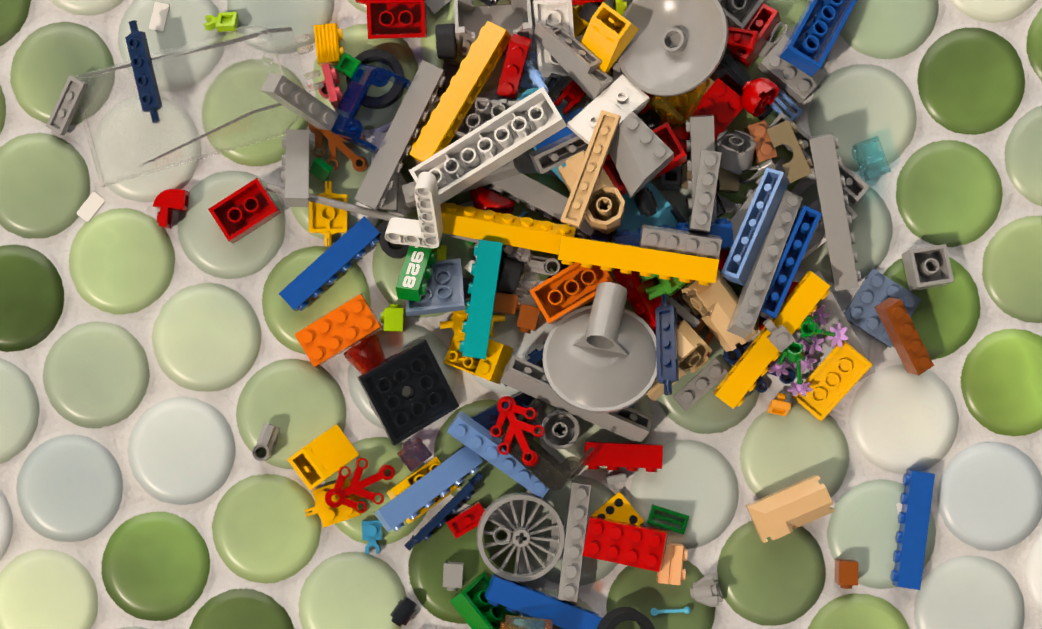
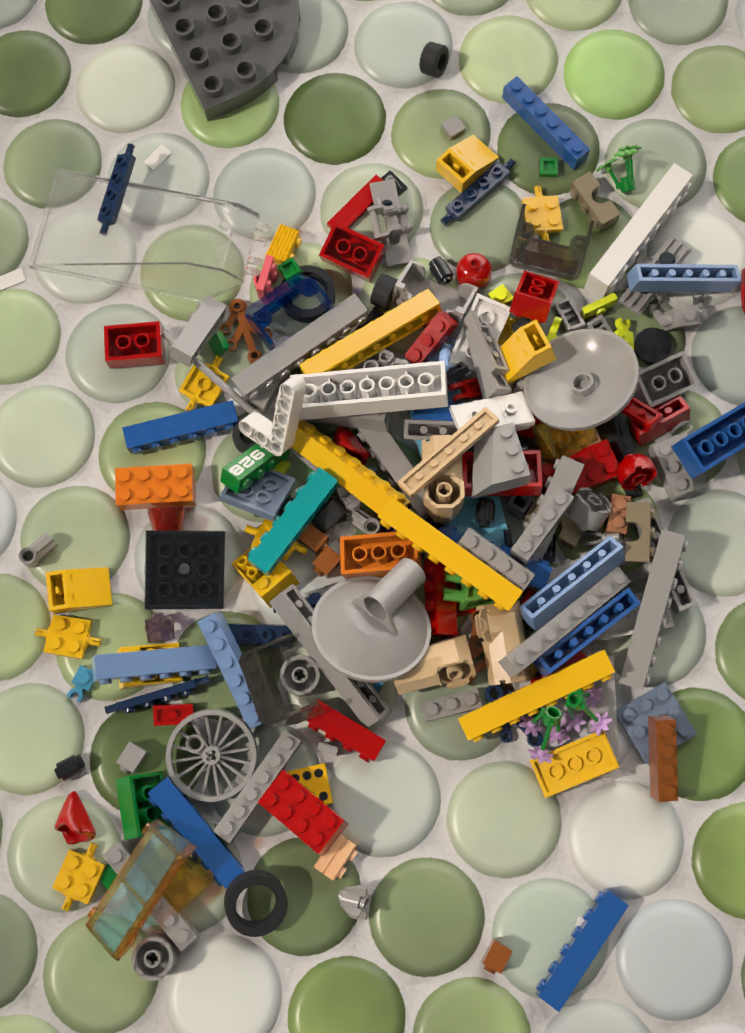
camera: 30 degrees right, 10 degrees down
(67, 105) = (39, 187): light grey plate -> none
(167, 202) = (74, 306): red brick -> none
(224, 22) = (207, 186): lime plate -> none
(299, 101) = (229, 272): light grey brick -> none
(356, 486) = (92, 630): red plant -> none
(393, 318) = (208, 502): lime brick -> none
(515, 428) = (260, 650): red plant -> none
(652, 514) = (358, 828): green tile -> none
(654, 611) = (297, 895): medium azure hinge -> none
(666, 344) = (436, 646): dark blue plate -> none
(684, 313) = (468, 628): light grey plate -> none
(777, 110) = (659, 509): medium blue tile -> none
(779, 336) = (544, 693): light grey plate -> none
(779, 405) = (512, 762): light orange tile -> none
(789, 508) = (473, 862): tan brick -> none
(870, 159) = (711, 581): clear light blue brick -> none
(927, 267) = (716, 707): light grey brick -> none

